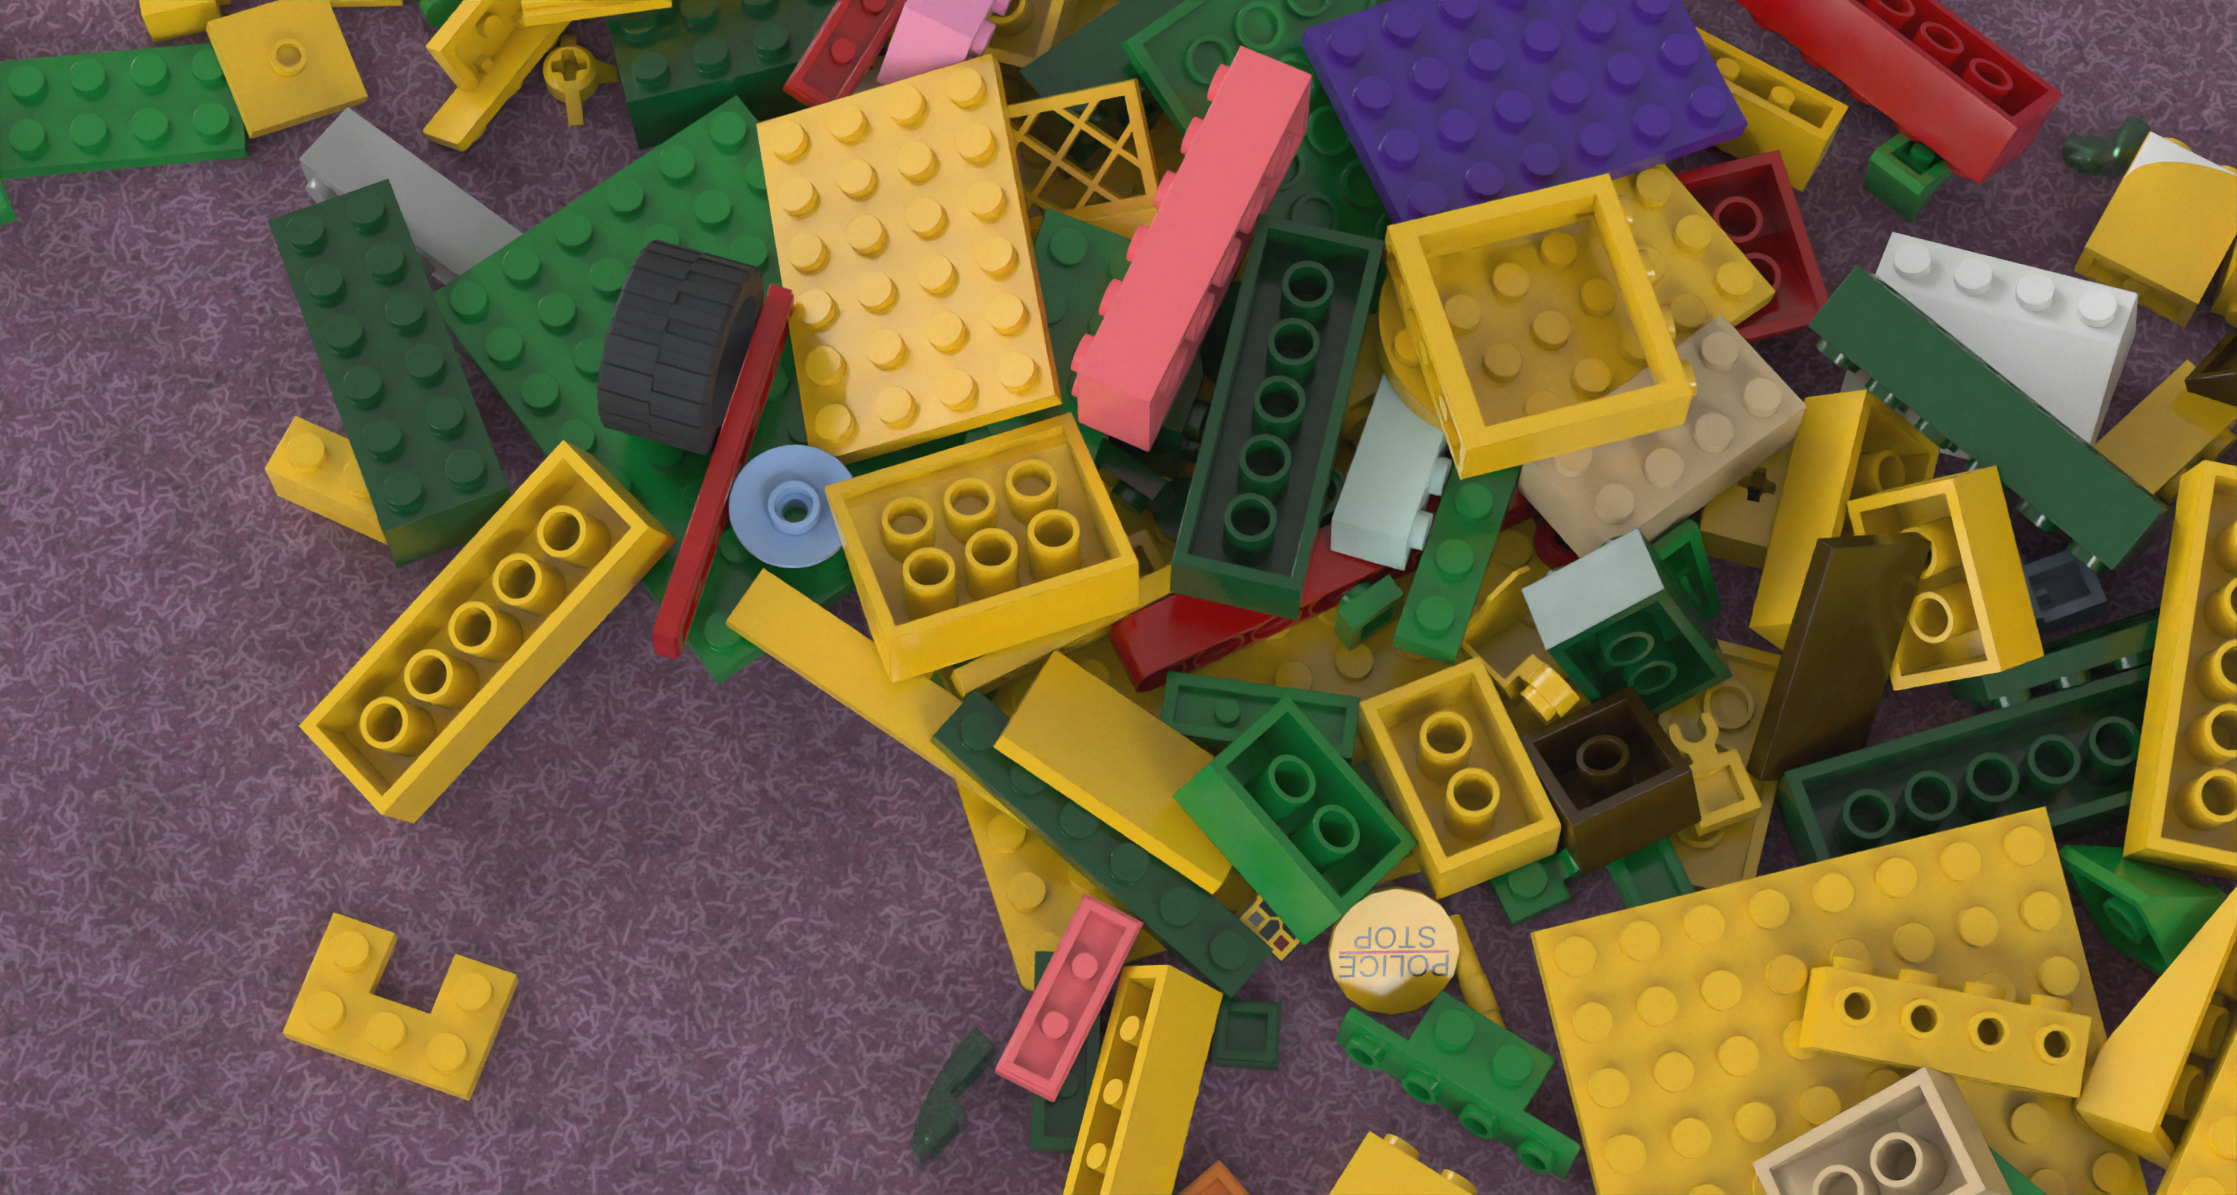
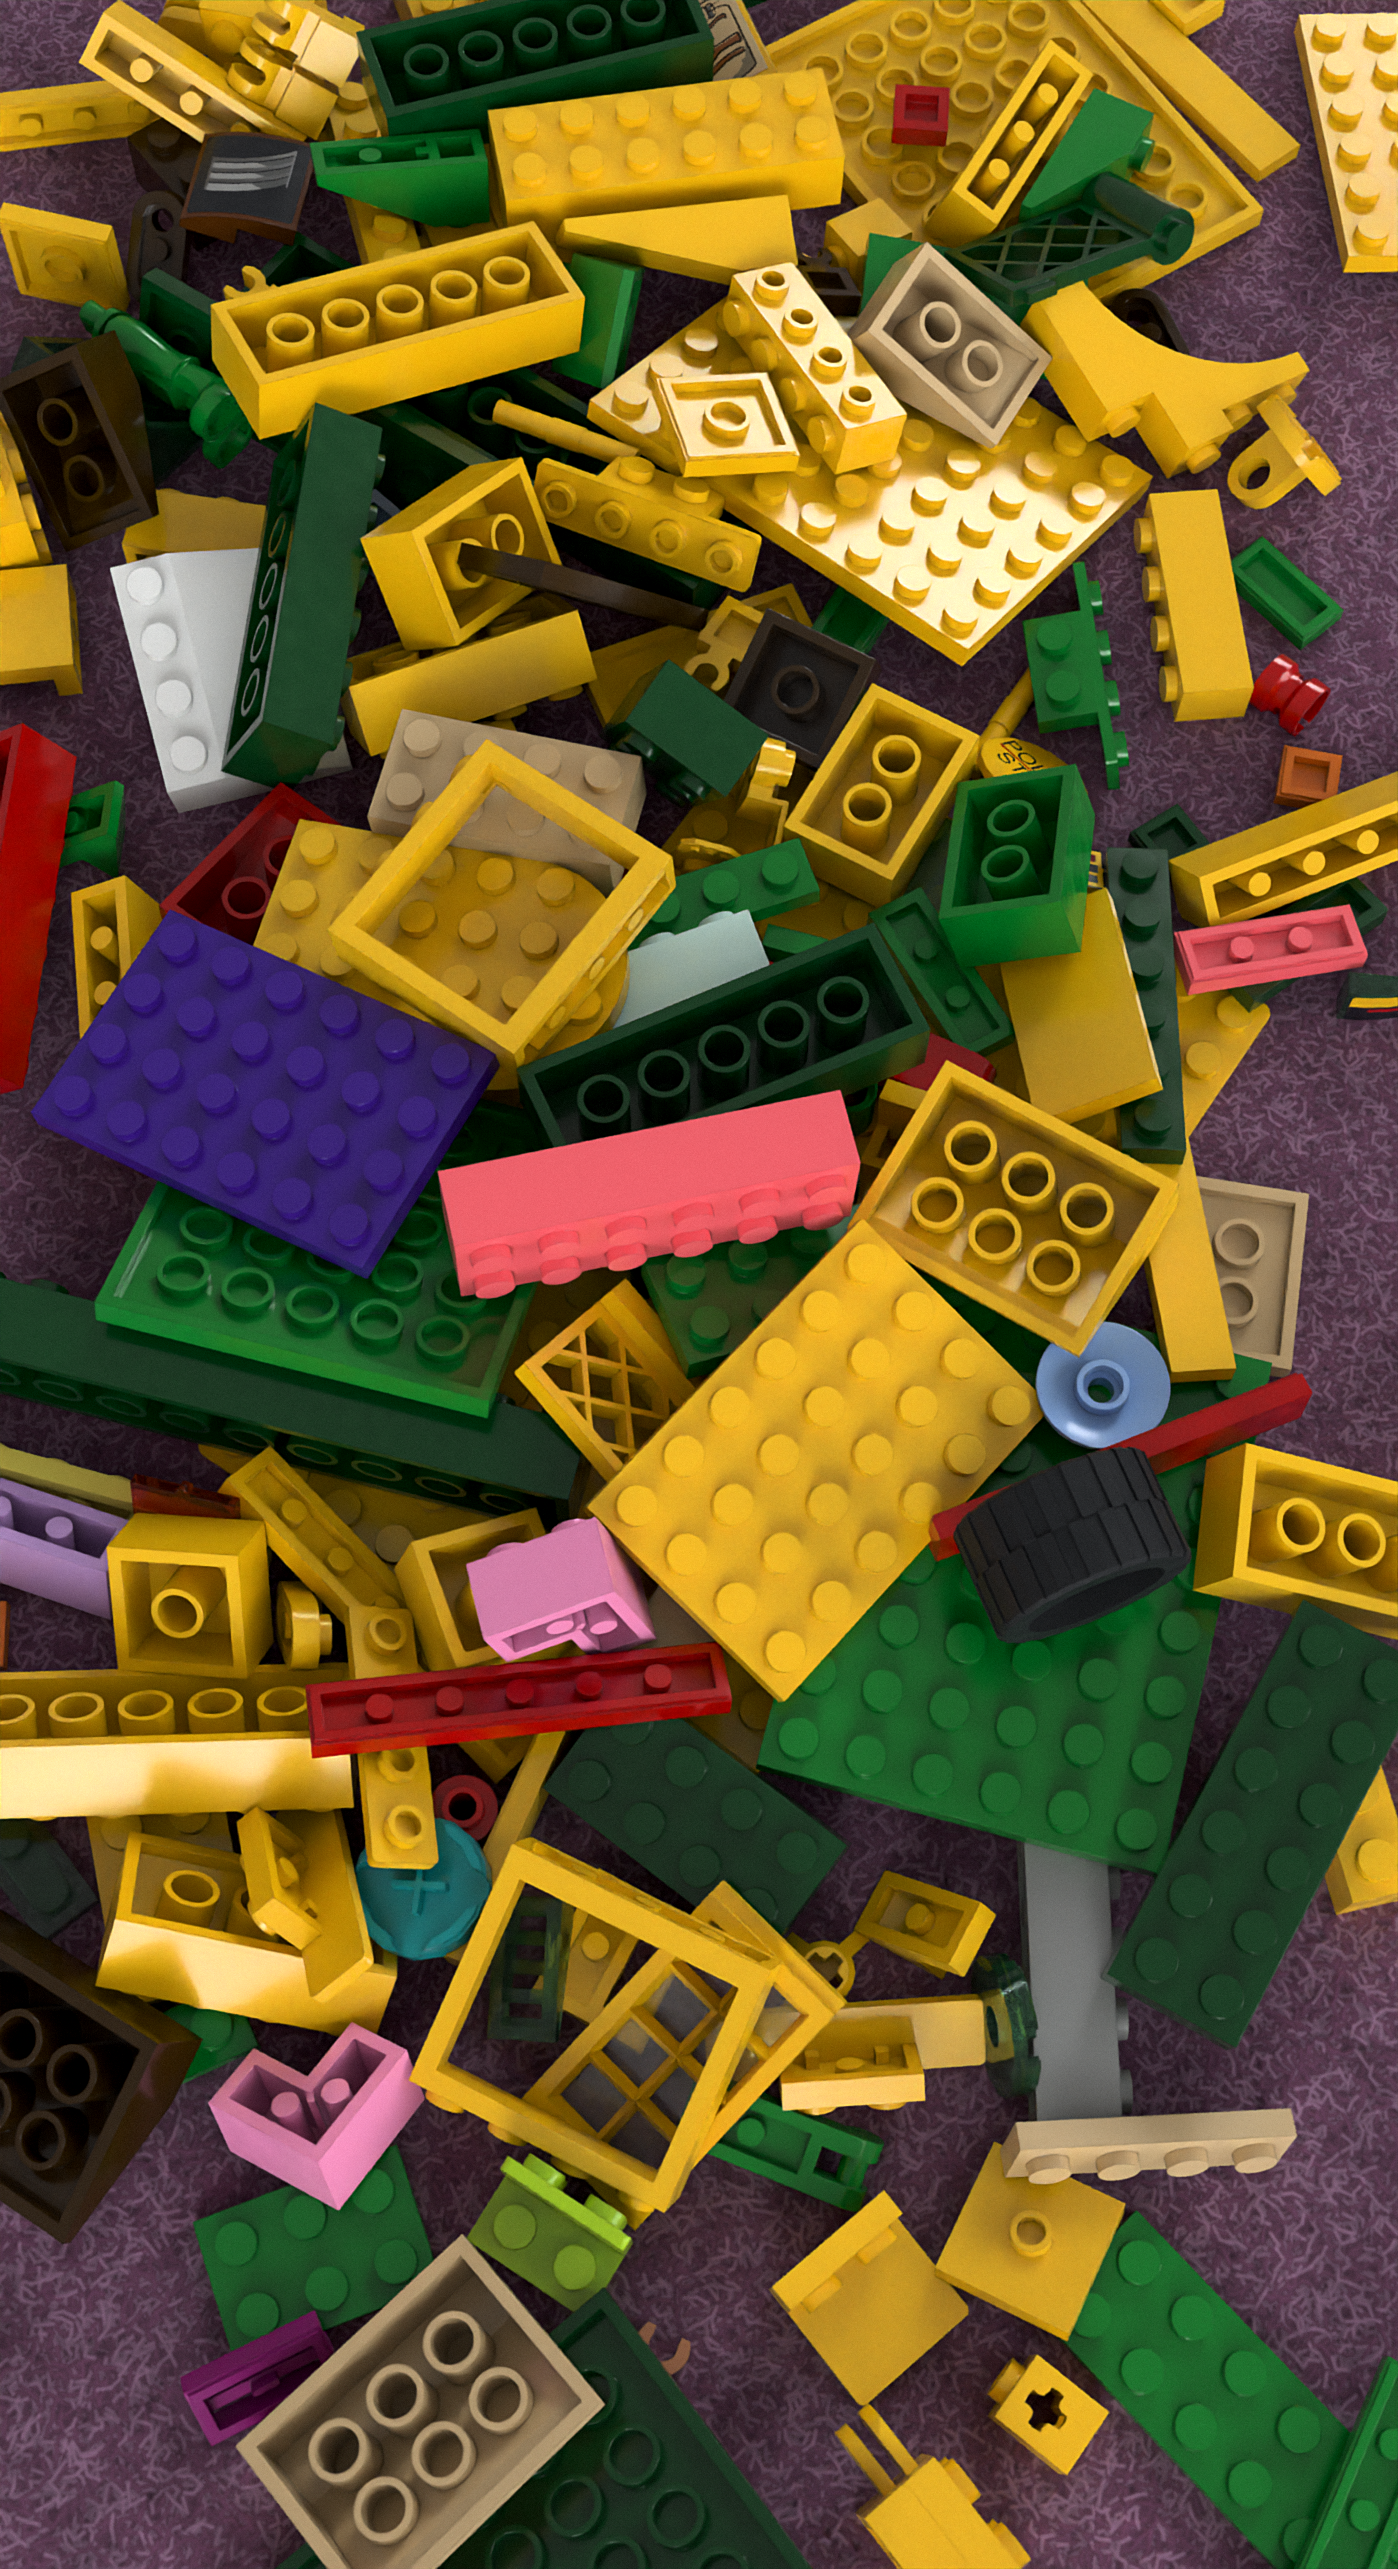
camera: 130 degrees left, 0 degrees up
(255, 192) = (1125, 2145): none -> tan plate
(428, 135) = (1007, 2024): none -> clear green tile
(540, 150) = (925, 1924): none -> yellow slope
(823, 763) = (1258, 1264): none -> tan plate
(1886, 780) = (650, 516): none -> yellow bracket
(1920, 884) = (725, 424): none -> yellow plate
(2028, 773) = (561, 432): none -> yellow piece
(2052, 1143) = (830, 283): none -> dark brown plate

